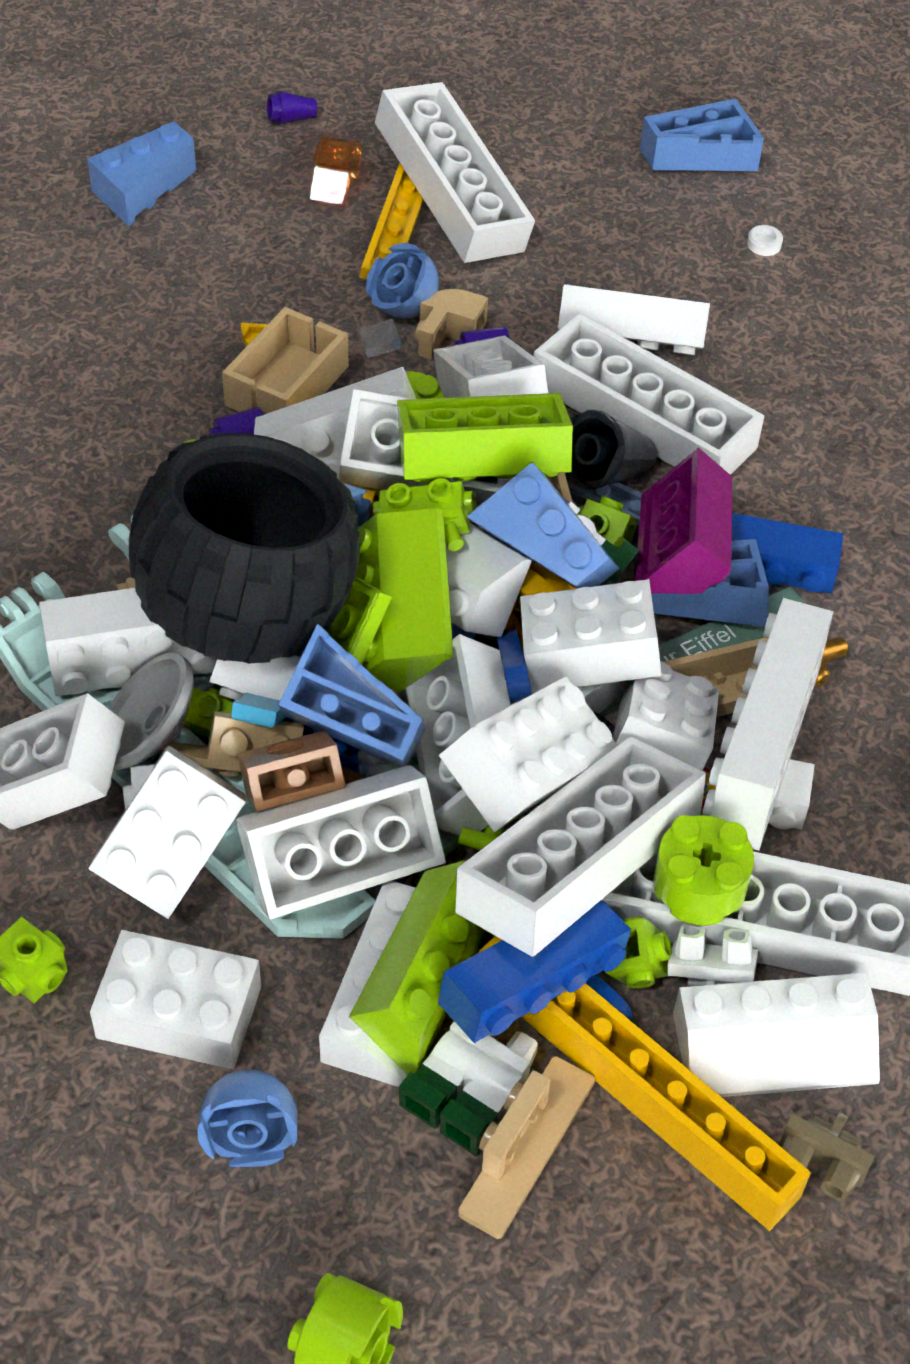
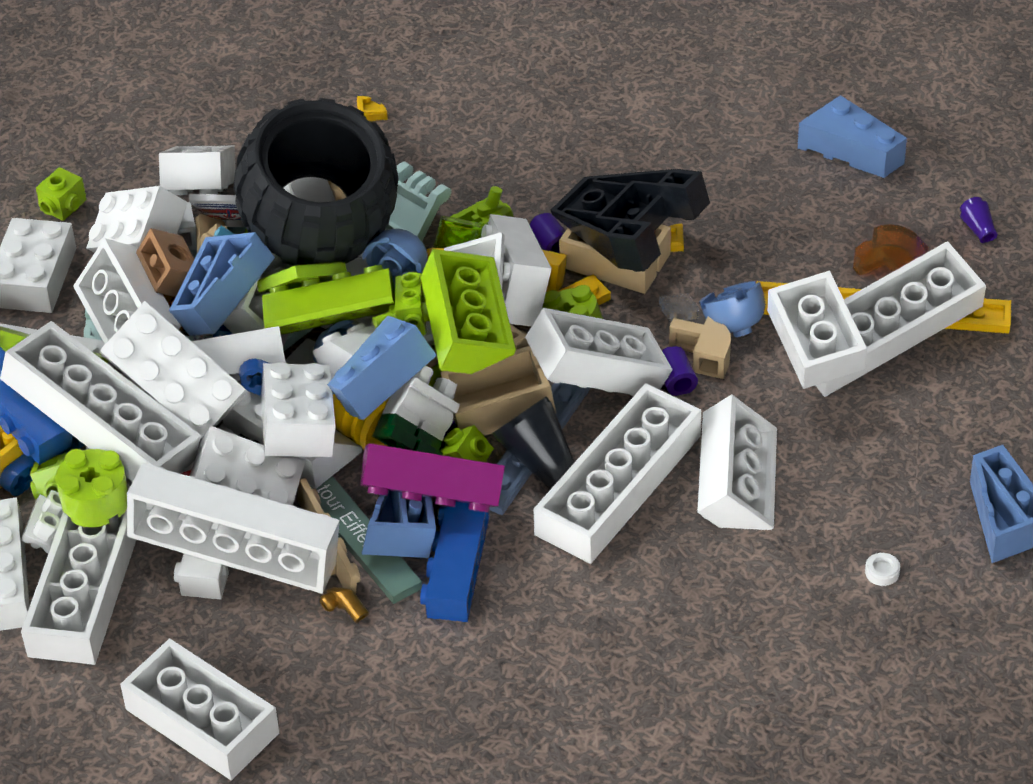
camera: 90 degrees right, 5 degrees down
(258, 342) = (624, 210): none -> black wedge
(500, 195) = (816, 329): none -> white brick

